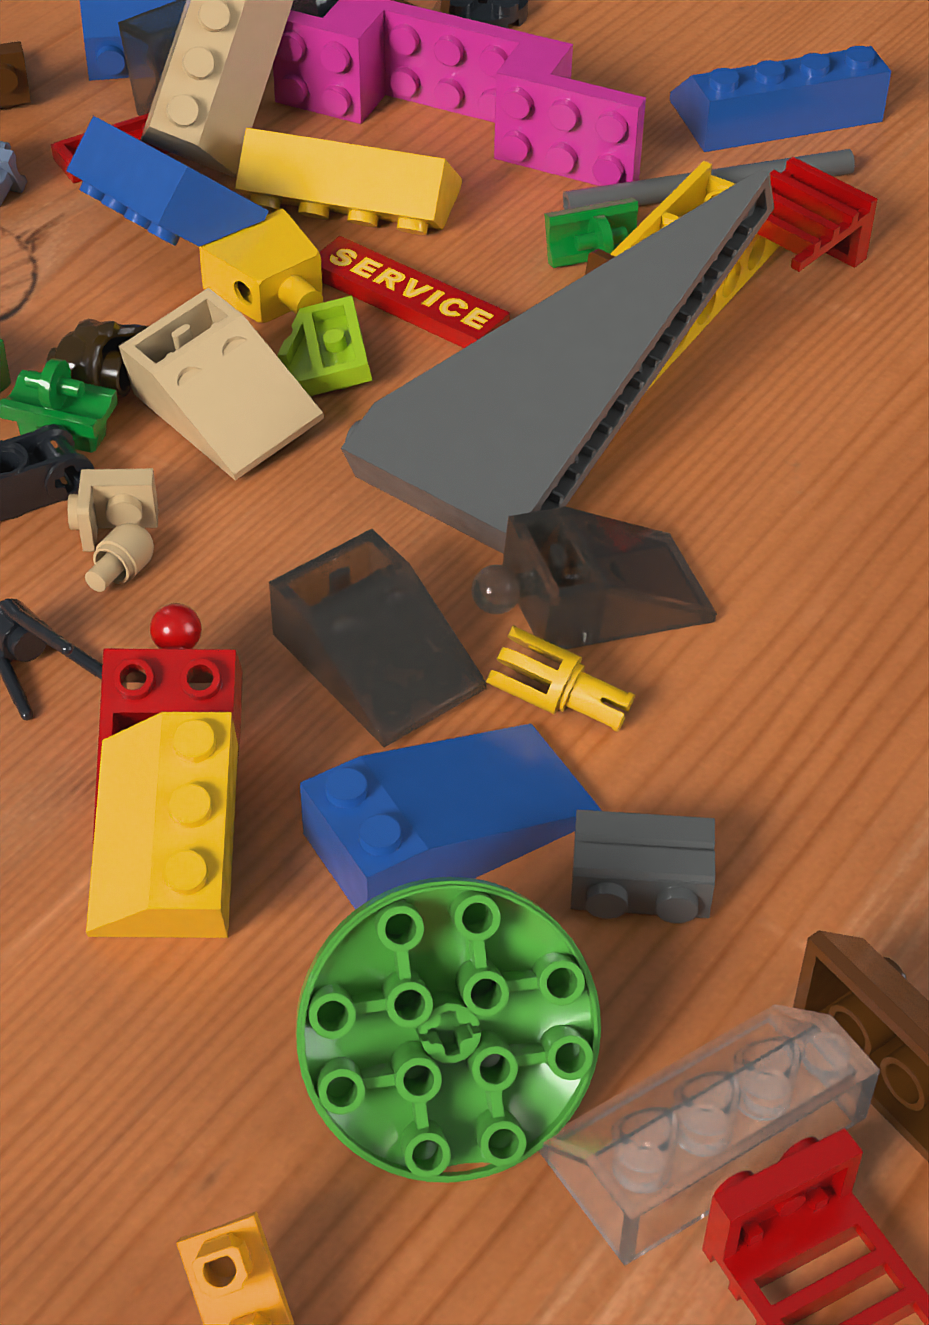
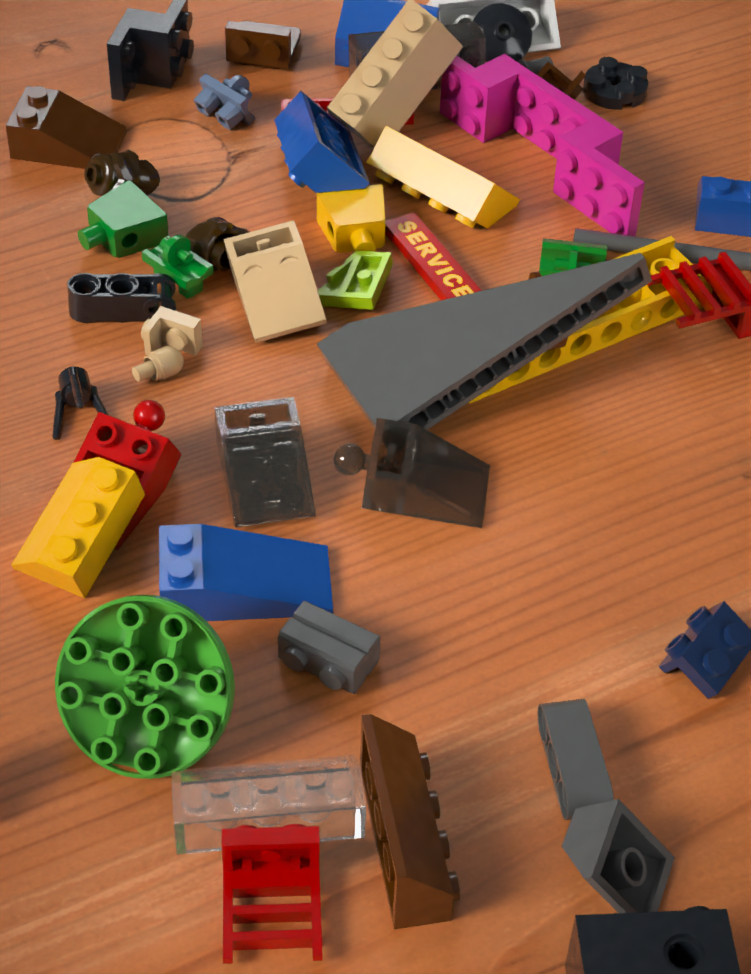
camera: 25 degrees right, 0 degrees up
(567, 685) = (357, 529): yellow arm -> none

